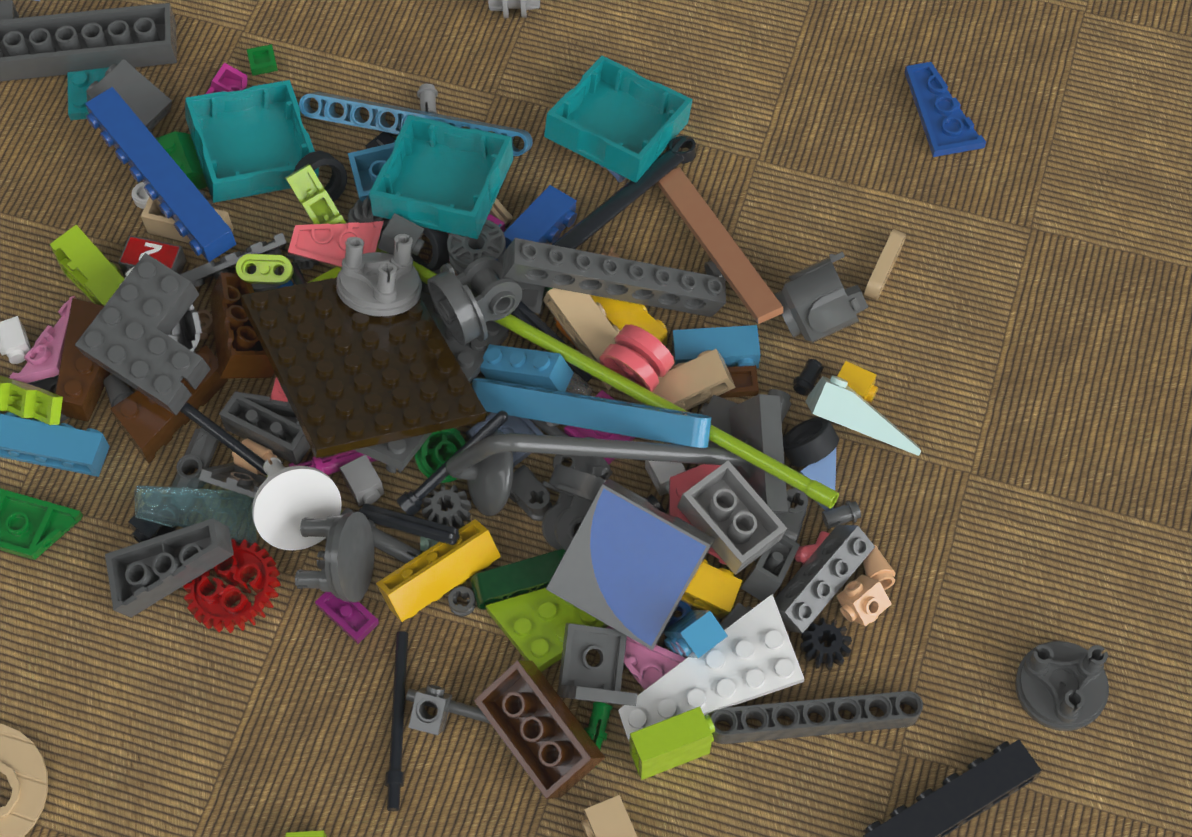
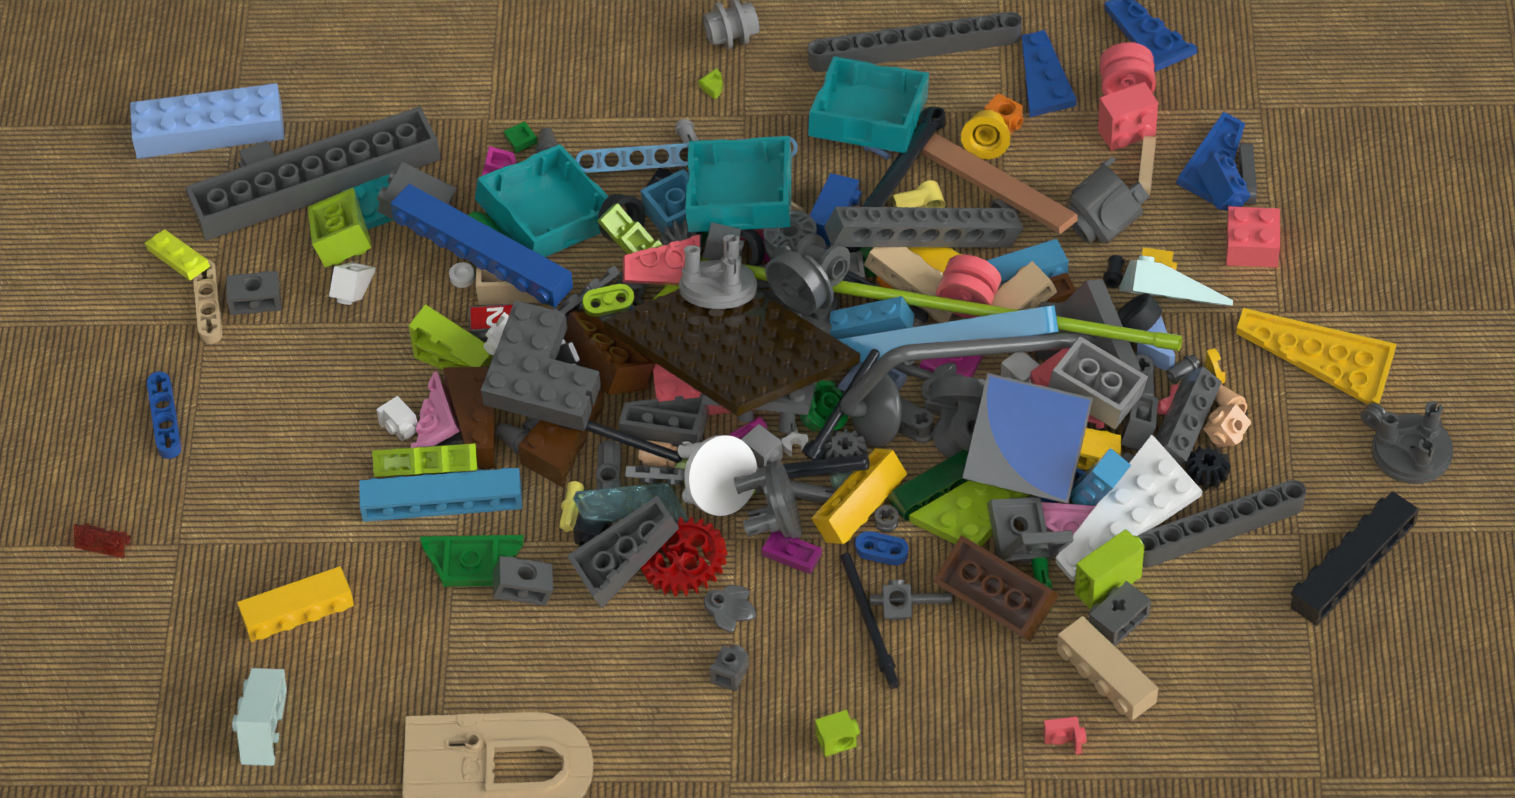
camera: 15 degrees left, 10 degrees down
(31, 173) = (350, 282): none -> white slope
(36, 567) = (522, 580): none -> dark grey brick
(41, 112) = (338, 228): none -> lime slope
(151, 478) = (569, 508): none -> light yellow axle
(228, 743) = (729, 667): none -> dark grey brick
(262, 661) = (732, 607): none -> dark grey plate
(285, 71) = (545, 140): none -> dark grey cone
(404, 476) = (793, 438): none -> white bar
(443, 638) = (883, 547): none -> blue plate
(475, 51) = (712, 84): none -> lime tile
(639, 238) = (926, 195): none -> light yellow piece
(656, 810) = (1120, 612): none -> dark grey brick
(698, 59) = (918, 40): none -> dark grey beam
(727, 183) = (986, 135): none -> yellow piece
(753, 156) = (1008, 109): none -> orange brick
(815, 134) = (1045, 79): none -> blue wing
(875, 514) = (1211, 364): none -> yellow tile
(883, 203) = (1127, 116): none -> coral brick
(899, 154) = (1125, 67): none -> coral wheel
(956, 279) = (1221, 141): none -> blue wing
(958, 310) = (1224, 182): none -> blue brick
(970, 379) = (1253, 236): none -> coral brick
(990, 302) = (1247, 170): none -> dark grey beam
(1014, 549) = (1337, 357): none -> yellow wing
(1031, 633) = (1372, 415): none -> dark grey bush

